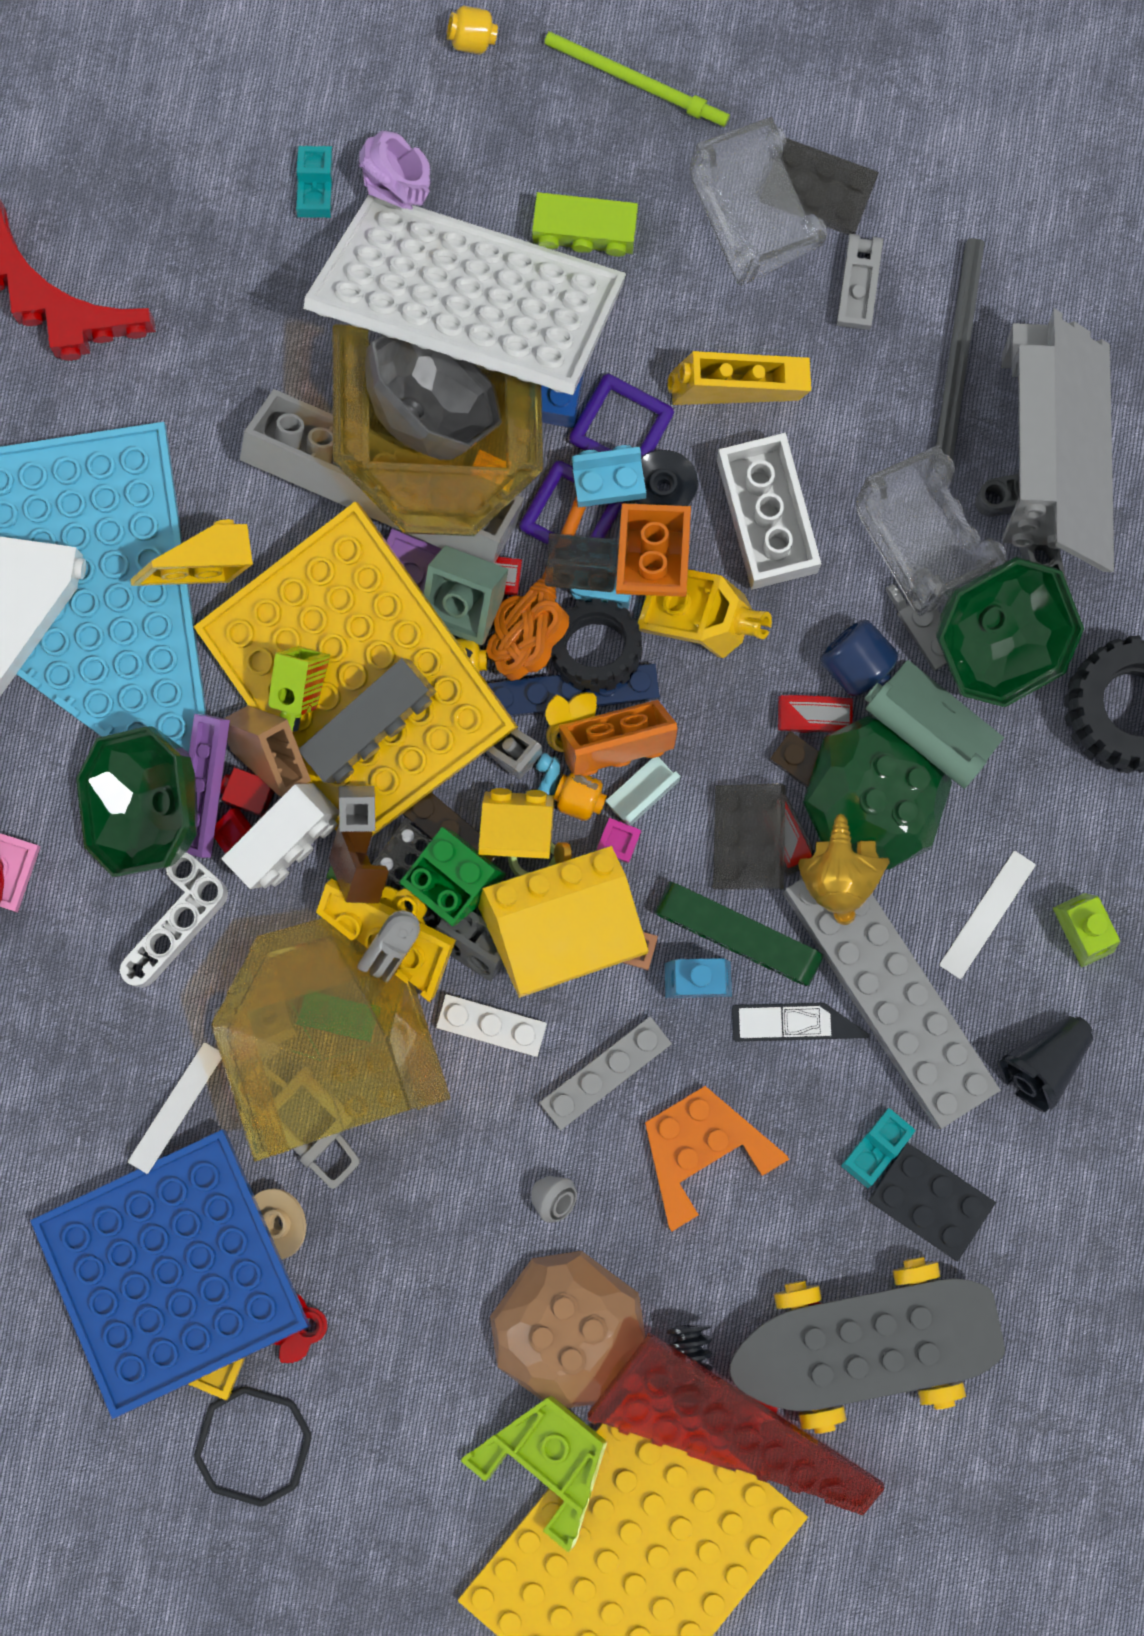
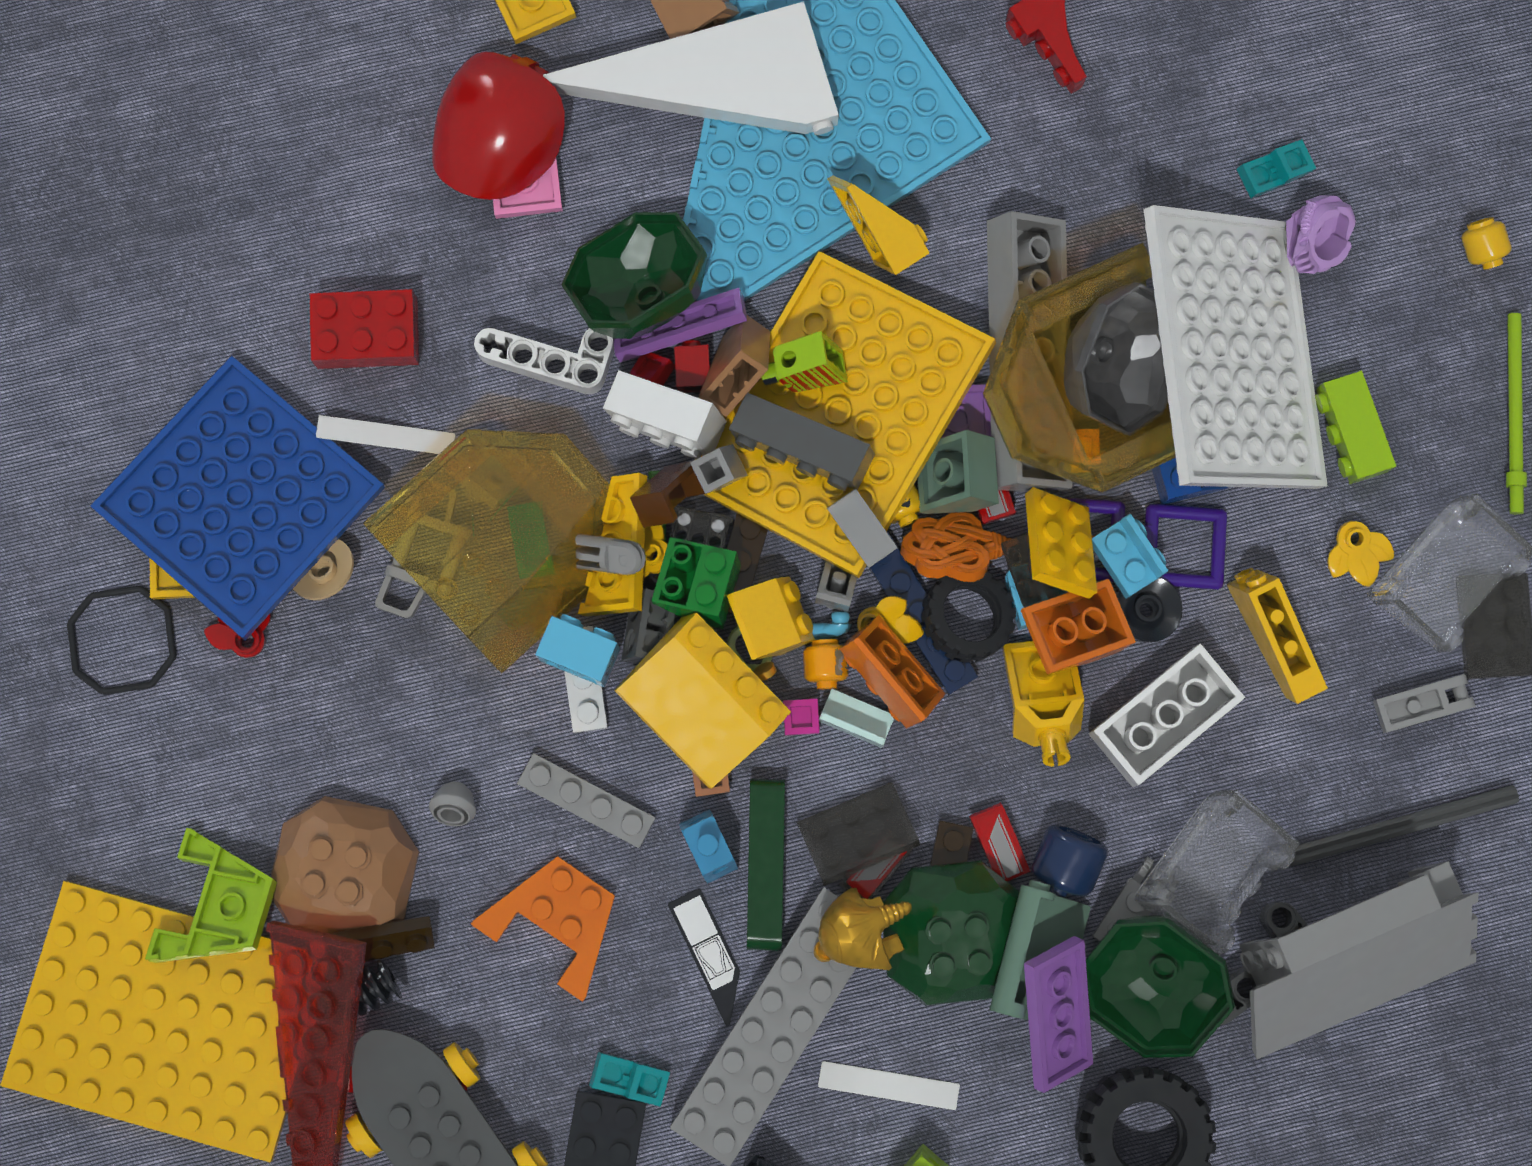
camera: 60 degrees right, 0 degrees up
(64, 1082) = (364, 329): none -> red brick
(466, 1013) = (578, 650): none -> medium azure brick
(474, 701) = (862, 528): none -> light grey slope
(570, 530) = (1060, 543): none -> yellow plate
(652, 1308) = (393, 937): none -> dark brown plate
(704, 274) = (1360, 558): none -> yellow plate
(994, 729) = (1058, 1013): none -> medium lavender plate

